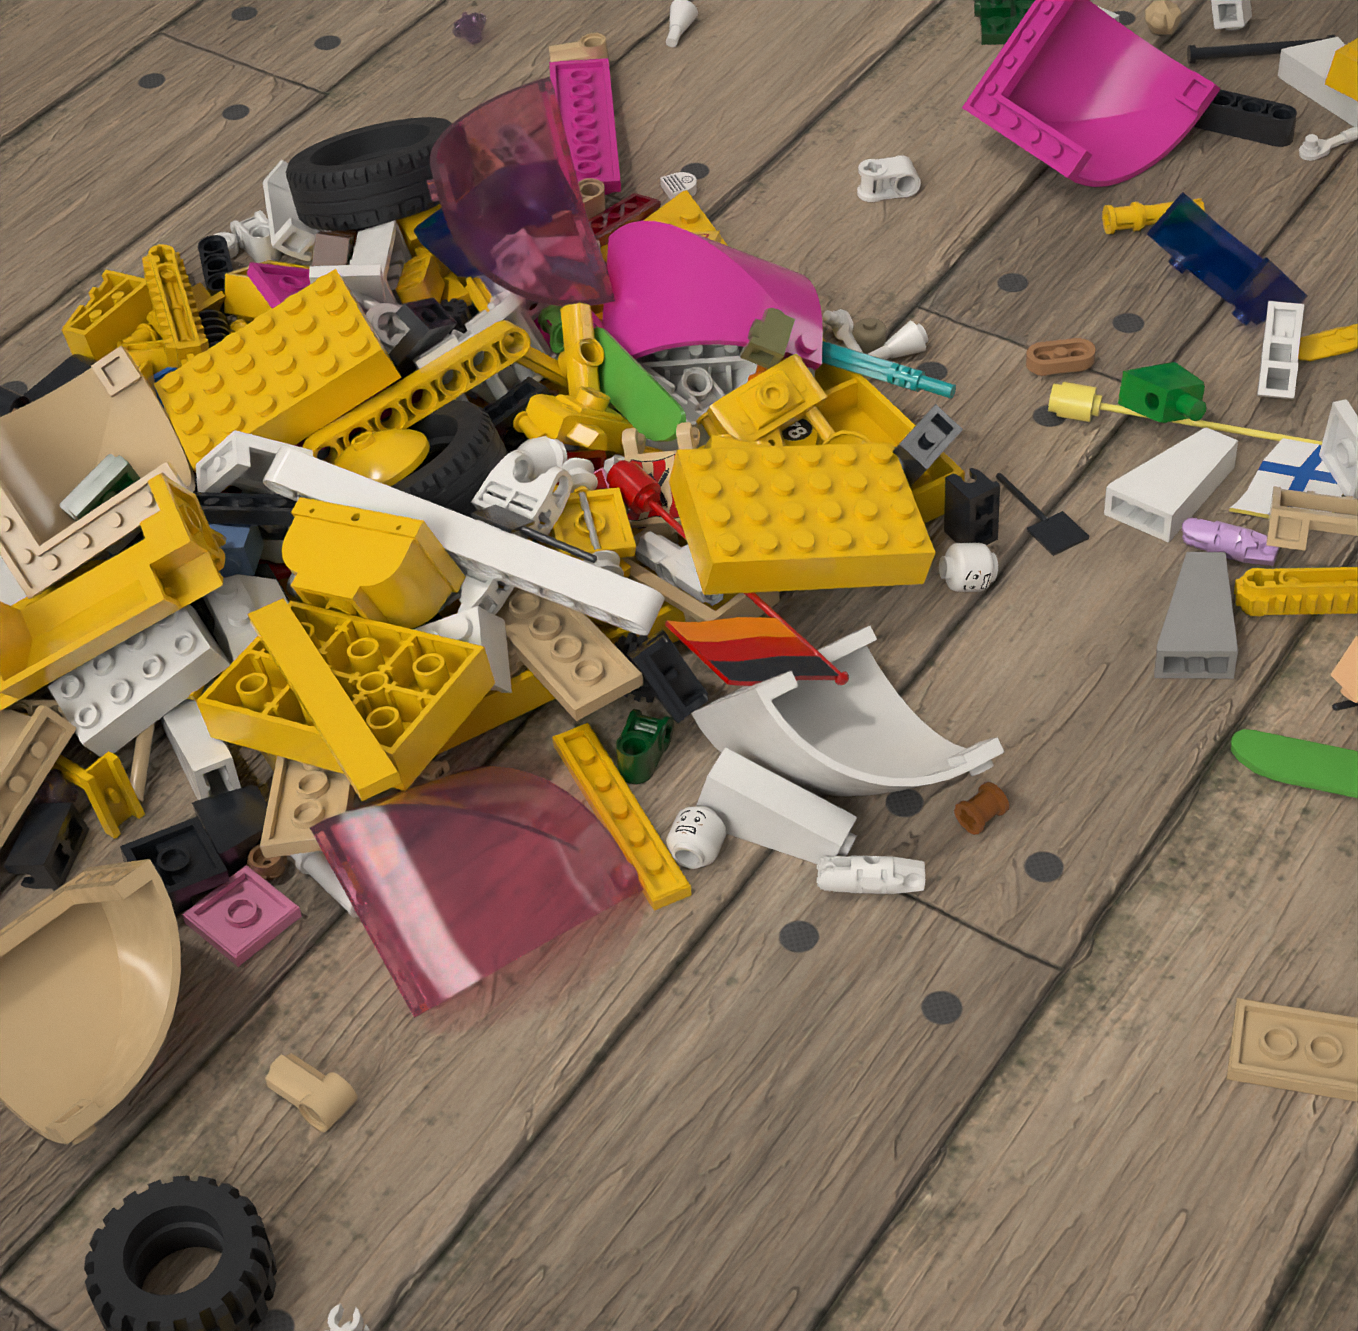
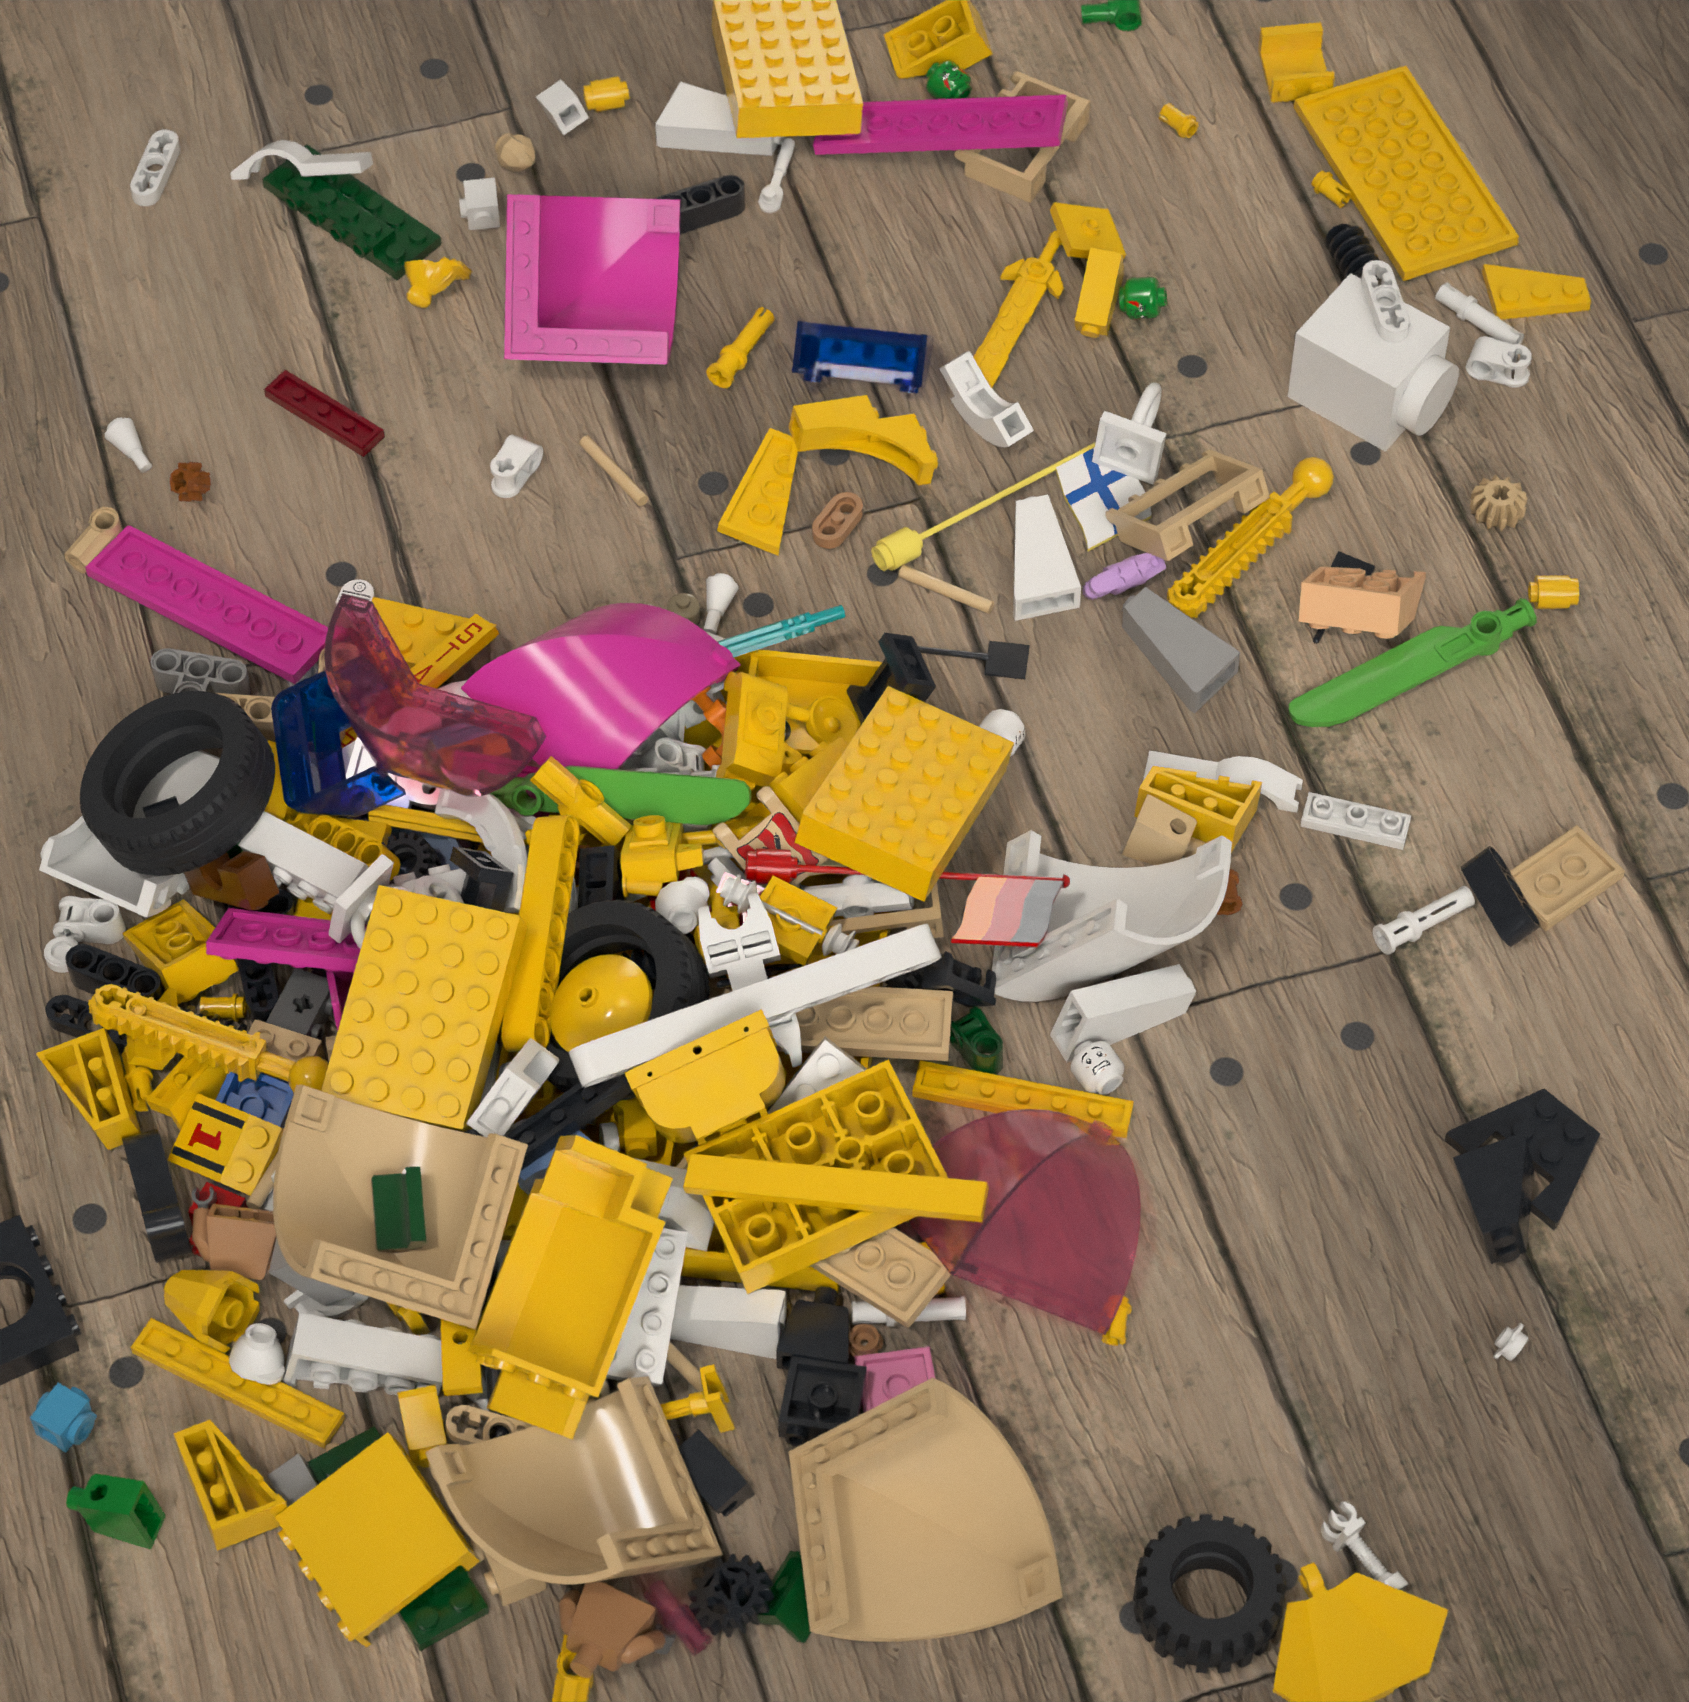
camera: 55 degrees left, 10 degrees up
(318, 1097) = (1120, 1432): tan piece -> none
(442, 1018) = (1118, 1326): none -> yellow pin
(512, 522) = (780, 961): black piece -> none
(677, 59) = (190, 481): none -> dark orange gear
(768, 338) = (718, 675): olive brick -> none
(820, 81) = (324, 413): none -> dark red tile
(846, 1221) = (1499, 1194): none -> black slope
(871, 874) = (1222, 993): white hinge -> none
(952, 228) = (613, 470): none -> tan bar
(971, 508) = (958, 691): black hinge -> none
(980, 1231) = (1556, 1140): none -> black wing
(983, 714) = (1161, 834): none -> tan torso
(987, 45) = (431, 278): none -> yellow hair
(1026, 308) = (762, 498): none -> yellow wing
(1046, 733) = (1216, 804): none -> yellow wedge
(1079, 456) = (946, 589): none -> tan bar
(1100, 963) = (1412, 924): none -> white pin
(1118, 737) = (1276, 784): none -> white piece
(1156, 307) = (856, 427): none -> yellow arch
(1163, 393) = (956, 494): green torso -> none
(1175, 855) = (1355, 820): none -> white tile
(1210, 1008) = (1500, 896): none -> black beam
(1243, 49) = (663, 89): black bar -> none
(1278, 21) = (606, 94): none -> yellow brick

